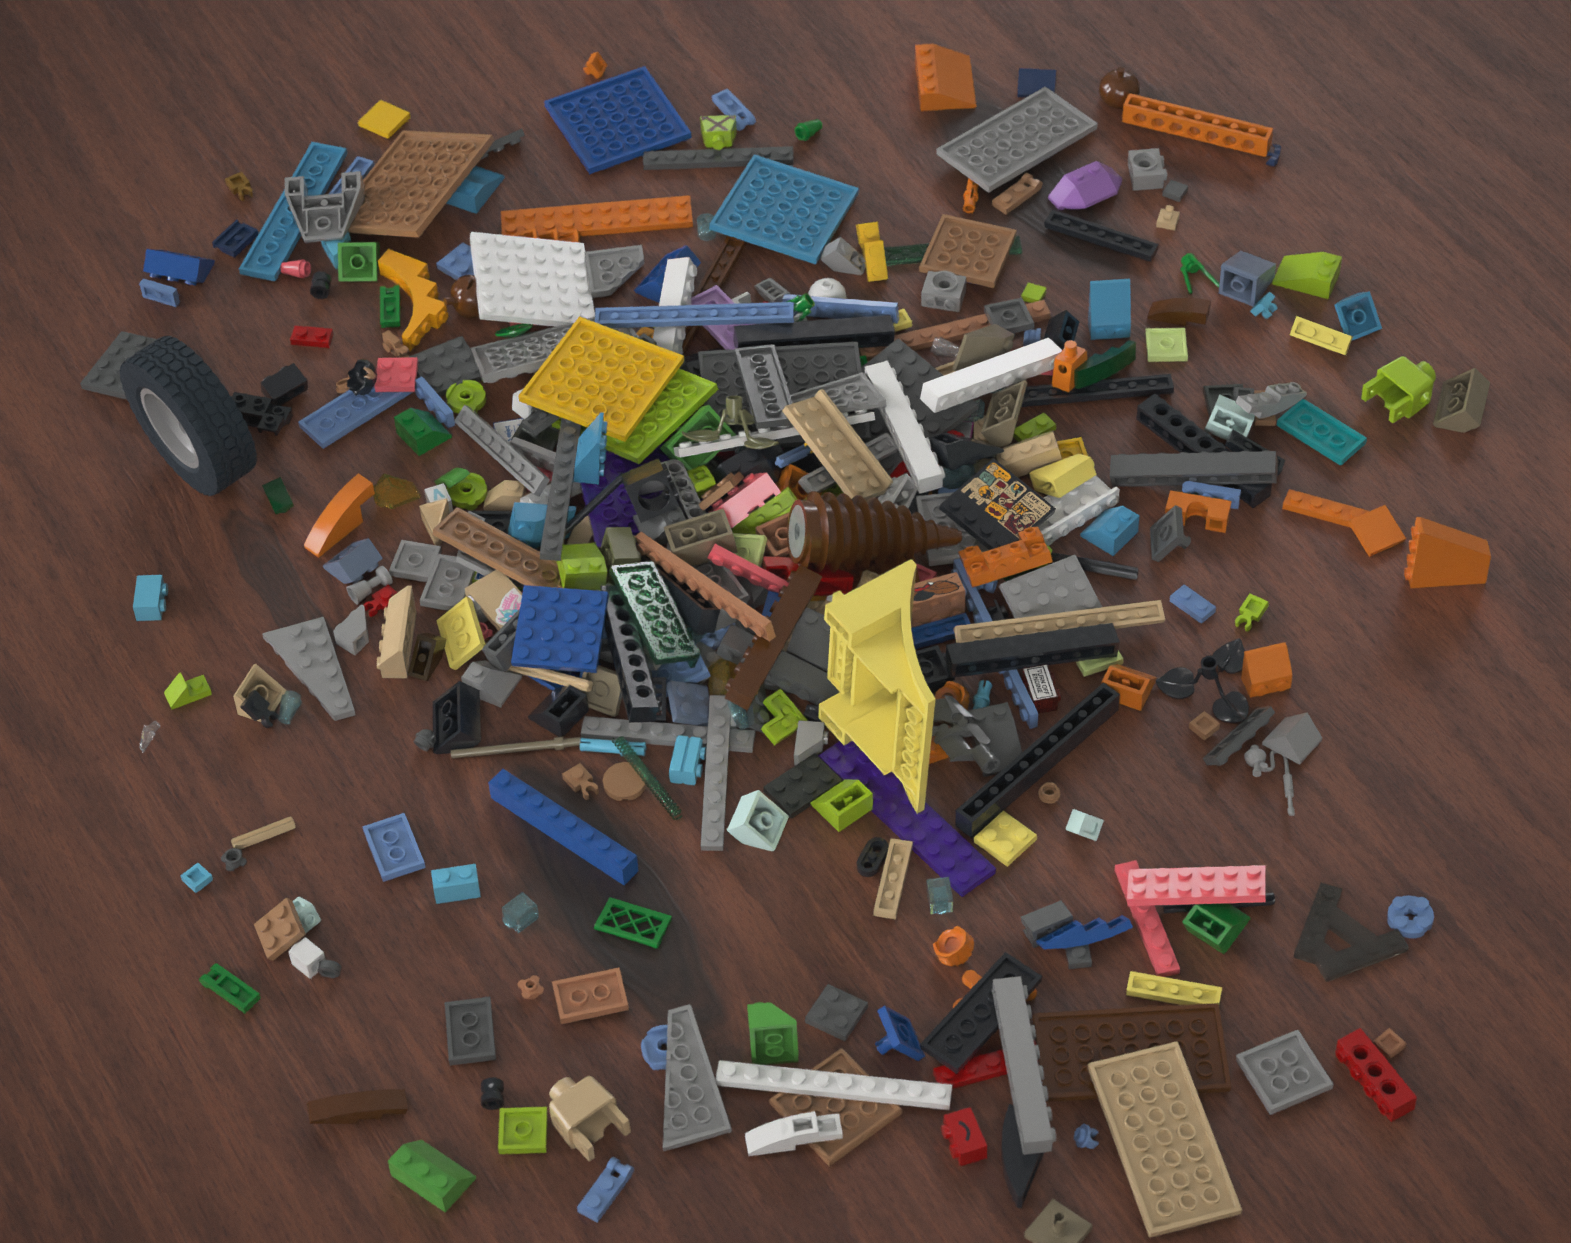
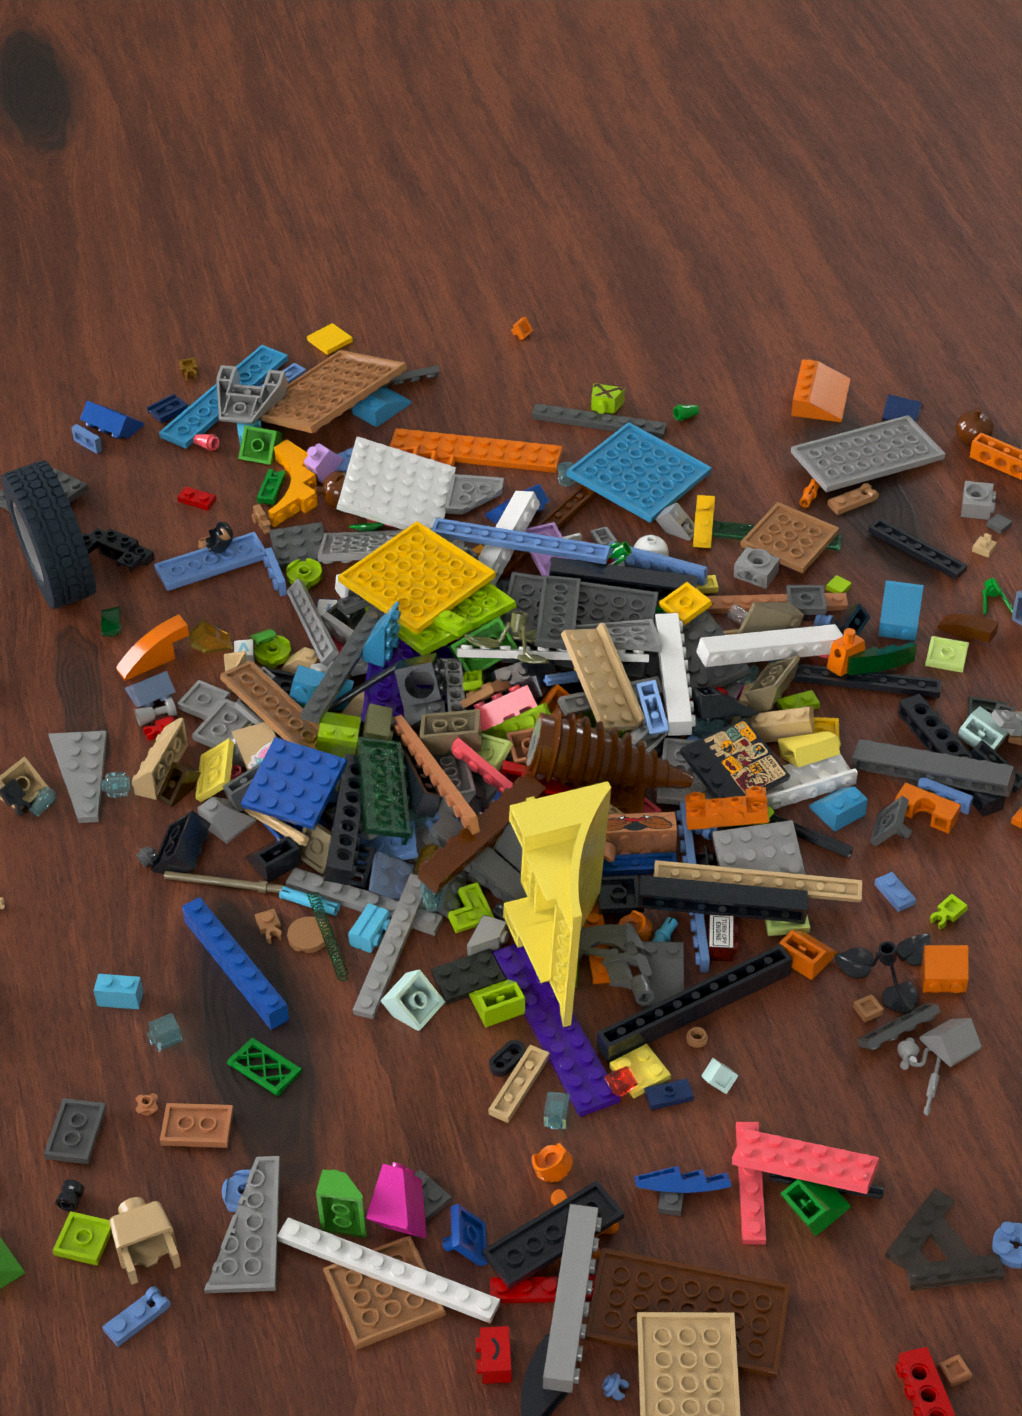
camera: 15 degrees right, 5 degrees down
(284, 385) = (154, 532): black brick -> none
(320, 285) = (220, 458): black wheel -> none
(353, 631) = (125, 748): light grey slope -> none
(361, 671) = (116, 784): none -> clear light blue head
(393, 847) = (79, 945): medium blue plate -> none
(396, 374) = (251, 542): coral plate -> none
(420, 430) = (254, 592): green slope -> none
(439, 268) = (322, 461): none -> lavender torso
(617, 119) = (524, 374): blue plate -> none
(659, 421) = (452, 623): none -> lime plate
(732, 106) = (625, 379): medium blue plate -> none
(791, 1131) = (328, 1305): white slope -> none
(824, 1018) = (398, 1201): none -> dark pink slope
(890, 346) = (686, 602): none -> yellow plate
(897, 468) = (652, 707): none -> light blue slope
(993, 852) = (621, 1081): none -> clear red slope
(1041, 854) = (668, 1094): none -> dark blue plate
(1045, 921) = (649, 1159): dark grey hinge -> none
(1085, 187) = (917, 504): medium lavender wedge -> none
(1171, 990) = (751, 1259): light yellow plate -> none
(1284, 1072) = (836, 1372): light grey plate -> none

